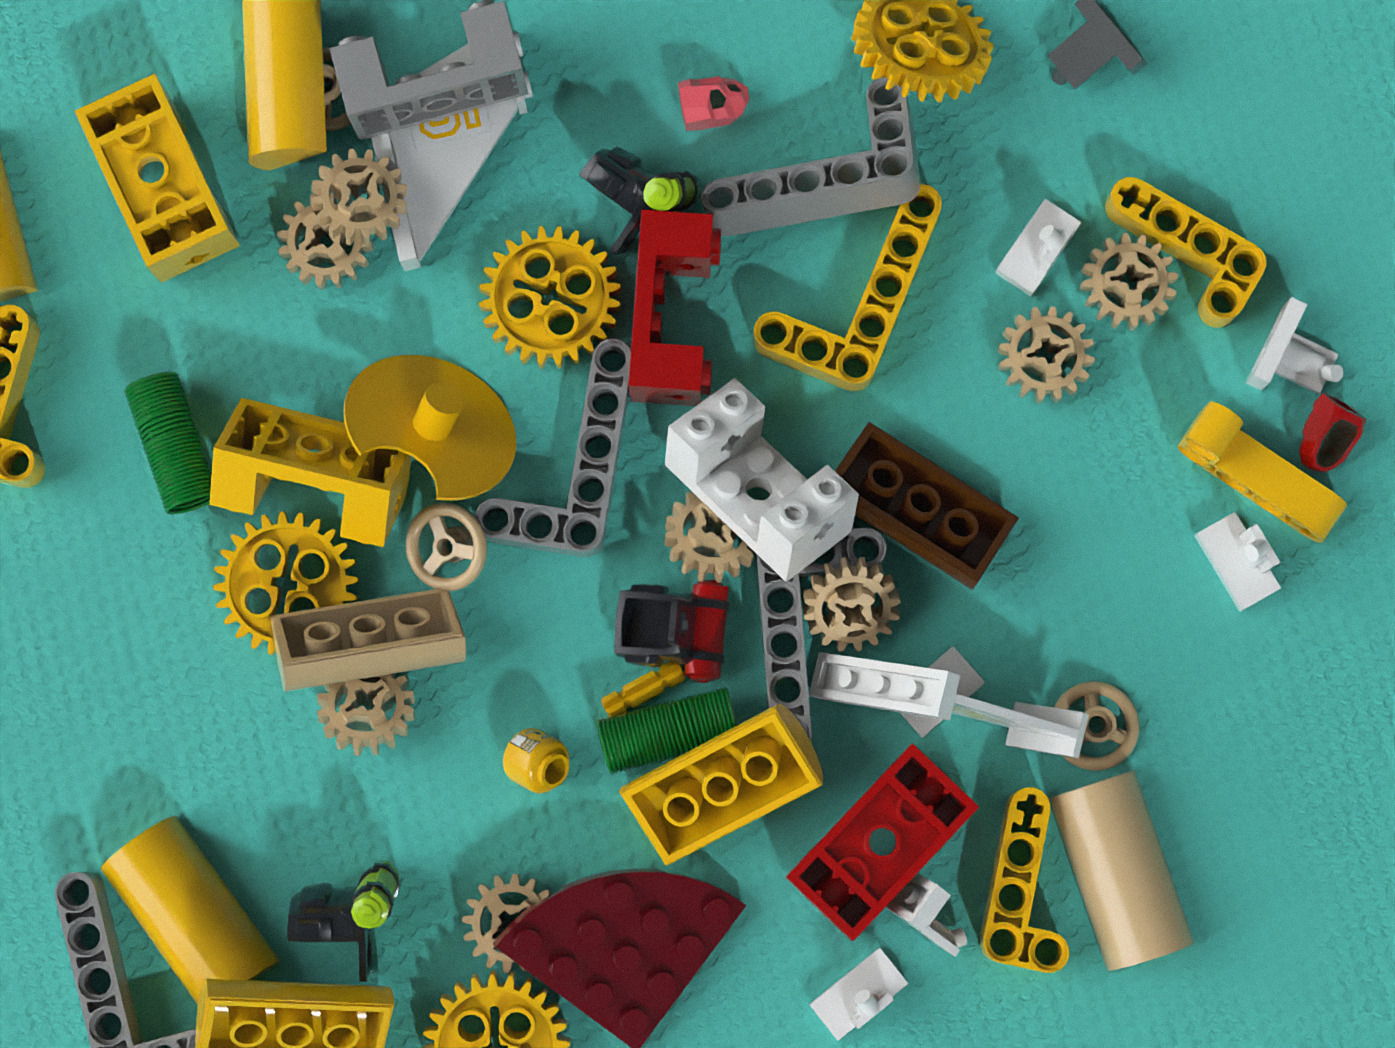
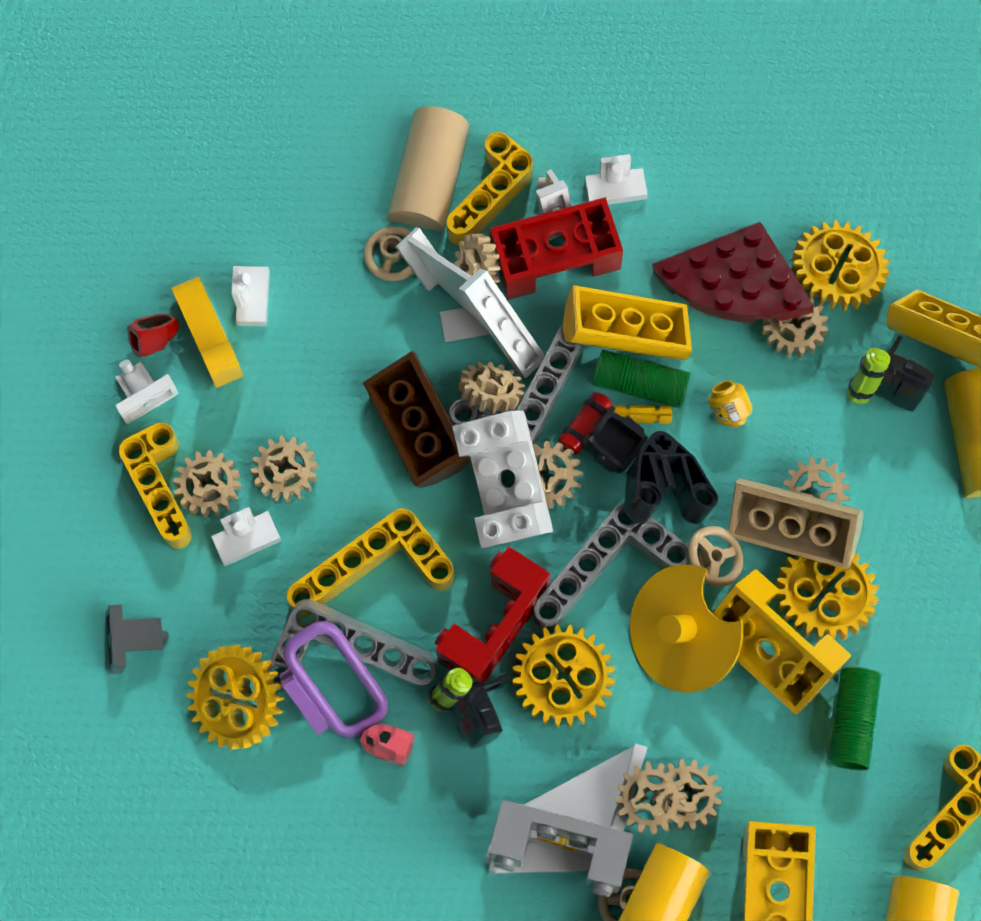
camera: 150 degrees left, 10 degrees down
(569, 615) = (665, 468): none -> black connector
(824, 83) = (309, 697): none -> medium lavender bar
(969, 756) = (477, 253): none -> tan gear

